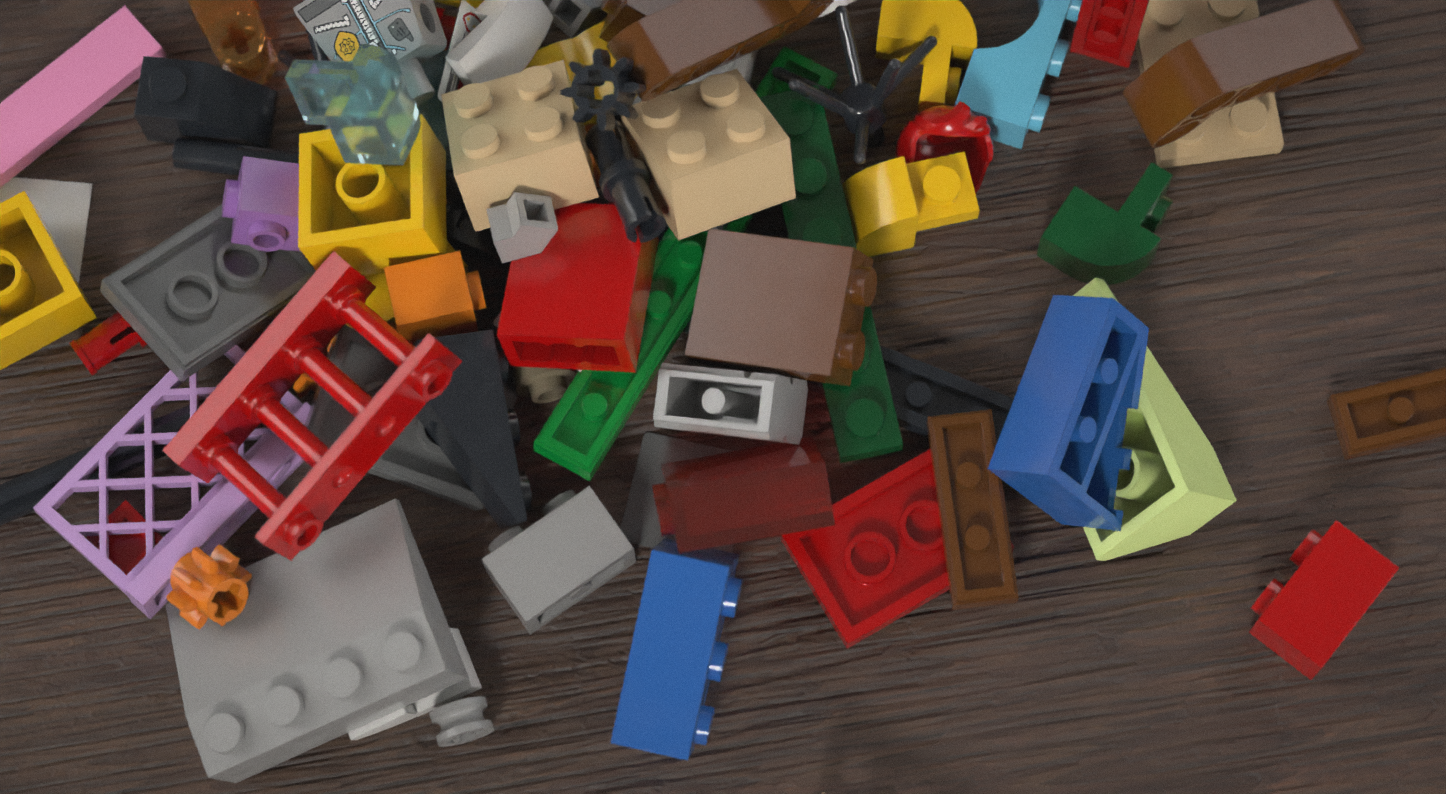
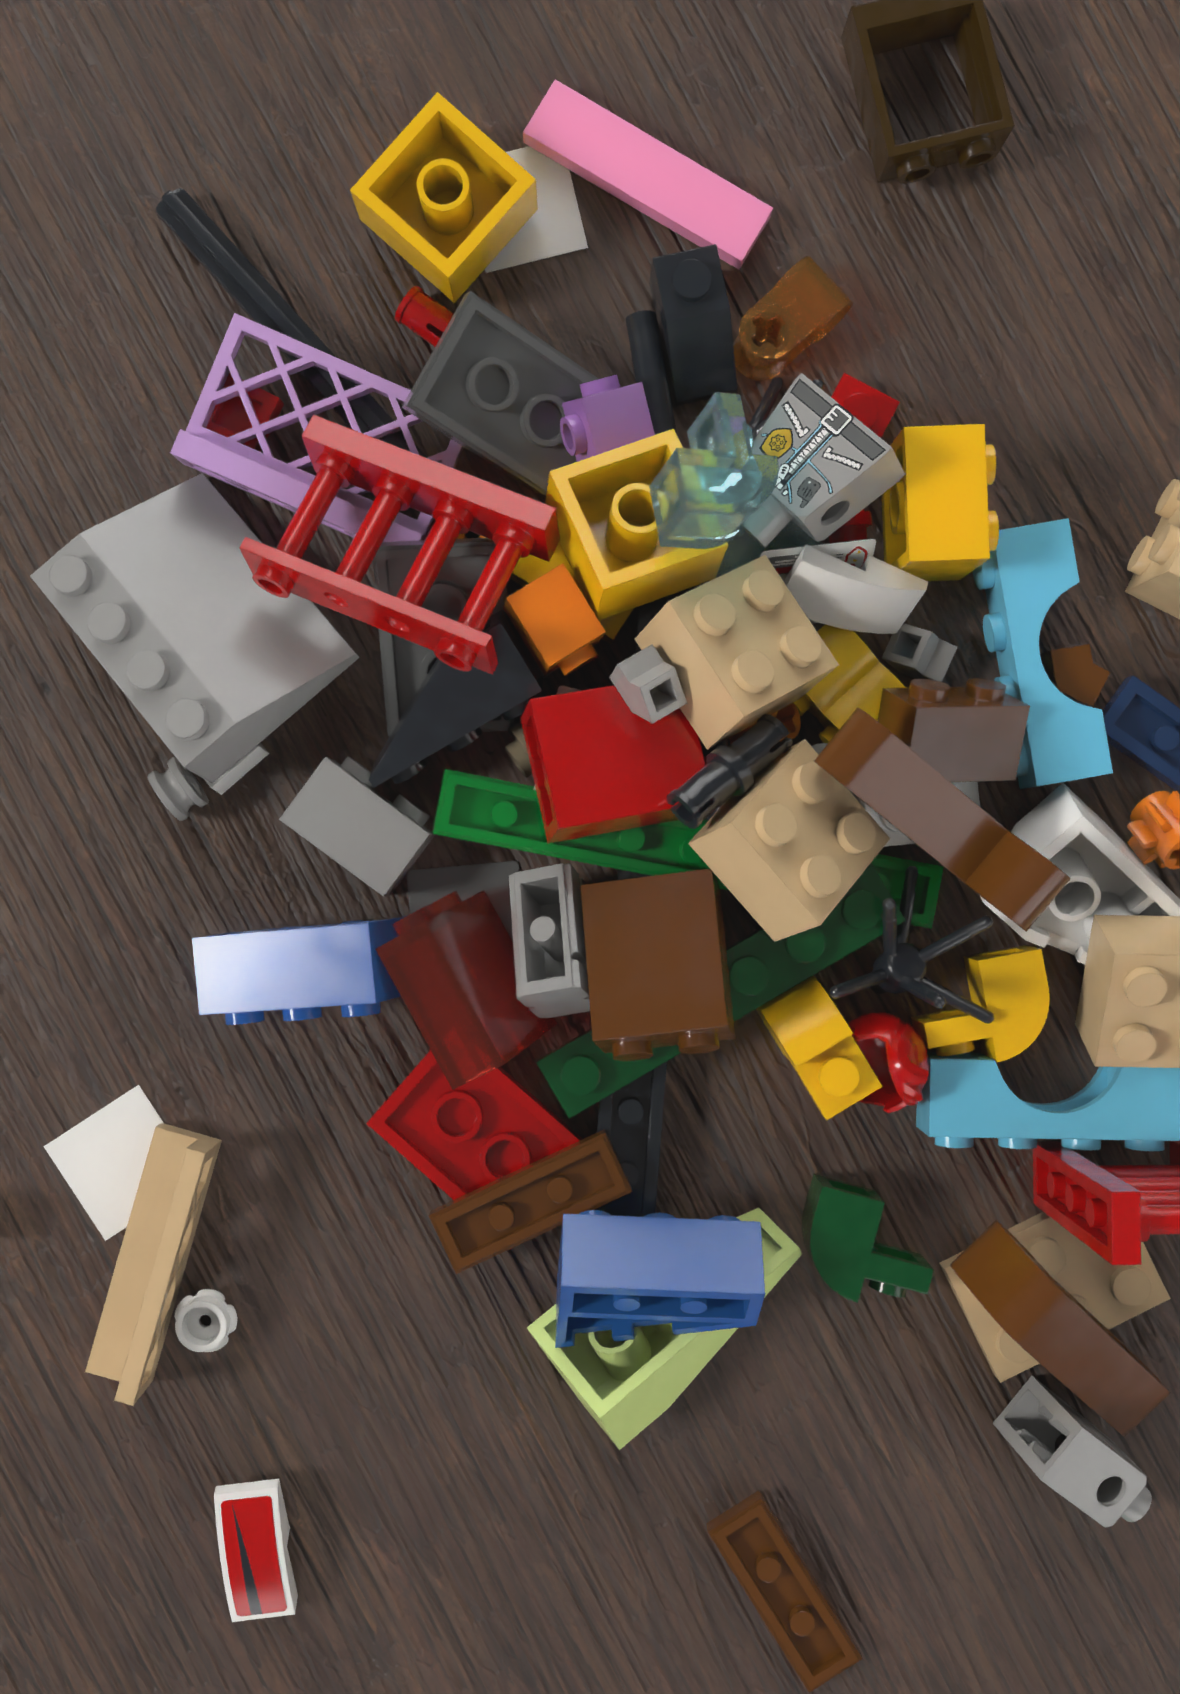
camera: 65 degrees right, 15 degrees up
(209, 586) = (208, 508): orange gear -> none
(596, 74) = (788, 717): black gear -> none
(1322, 599) = (557, 1551): red brick -> none
(1366, 95) = (1085, 1467): none -> light grey torso

